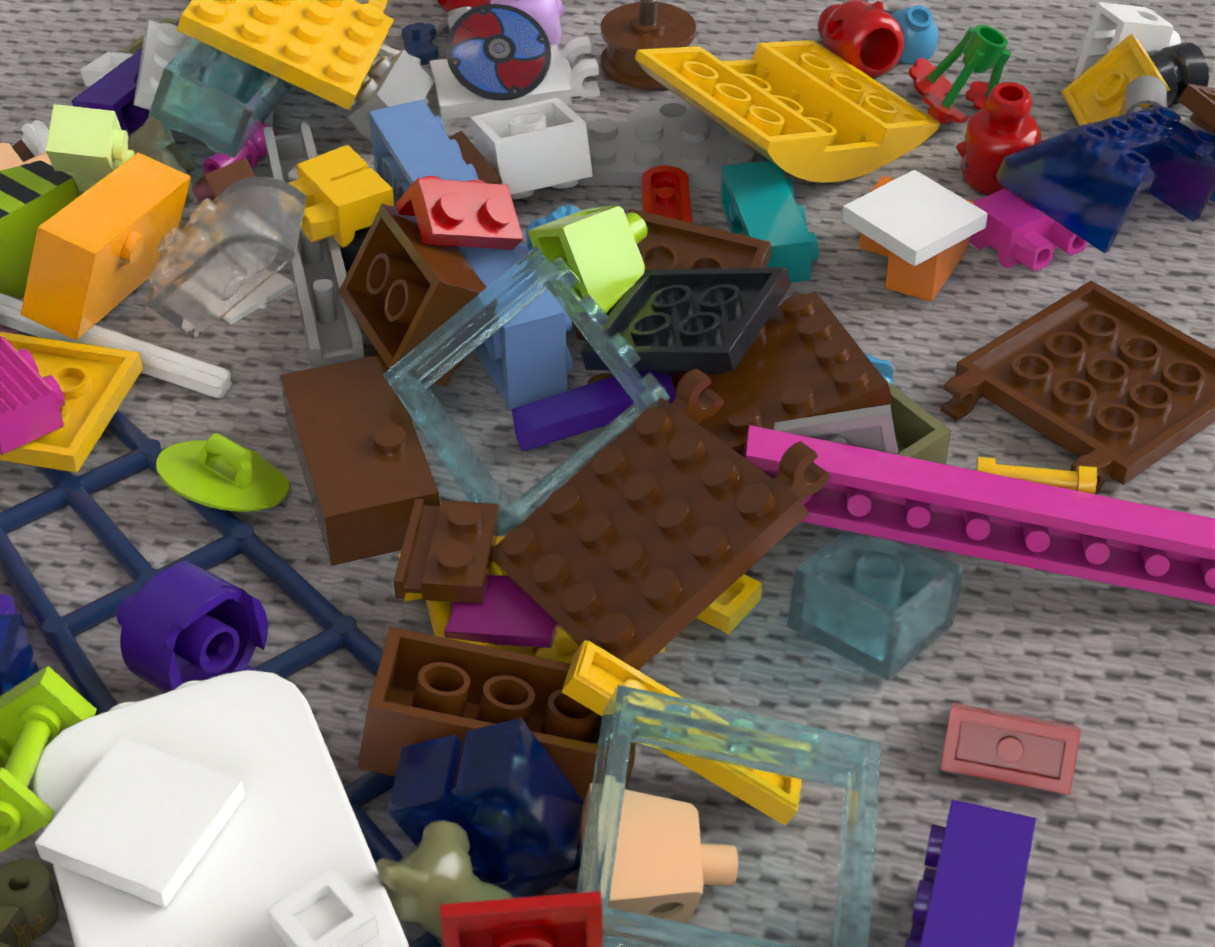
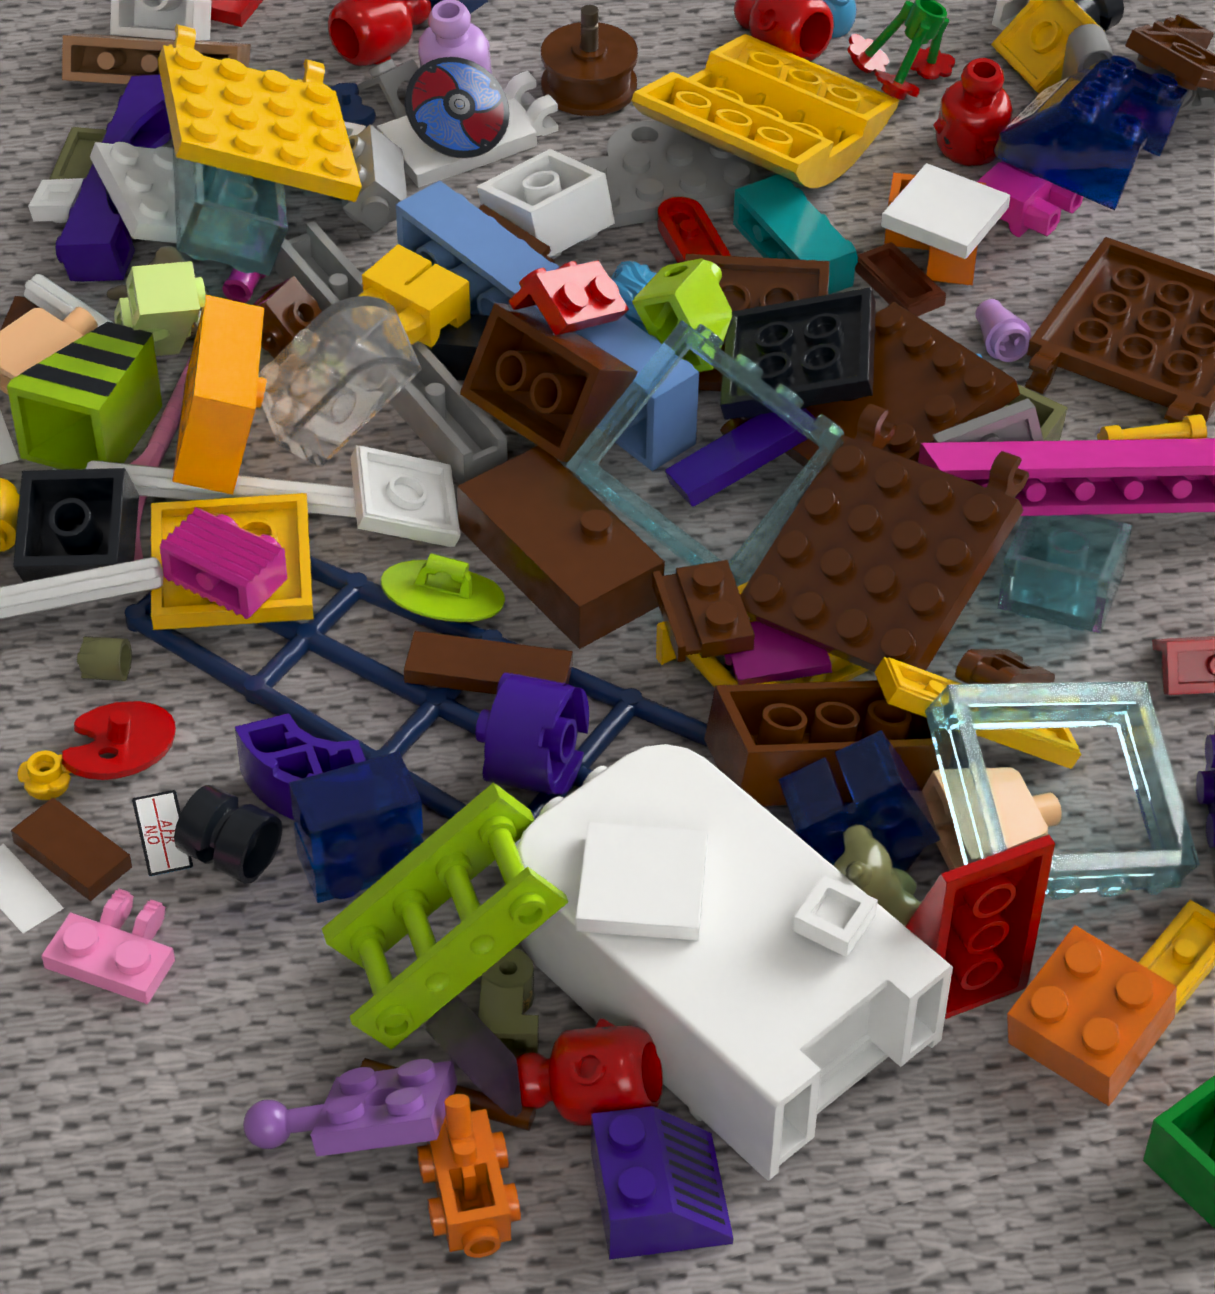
camera: 20 degrees left, 5 degrees up
(173, 537) = (479, 663): none -> reddish brown tile
(238, 378) = (404, 496): none -> white tile
(740, 690) = (999, 667): none -> reddish brown plate
(856, 284) = (899, 279): none -> copper tile
(936, 350) = (1002, 331): none -> lavender cone

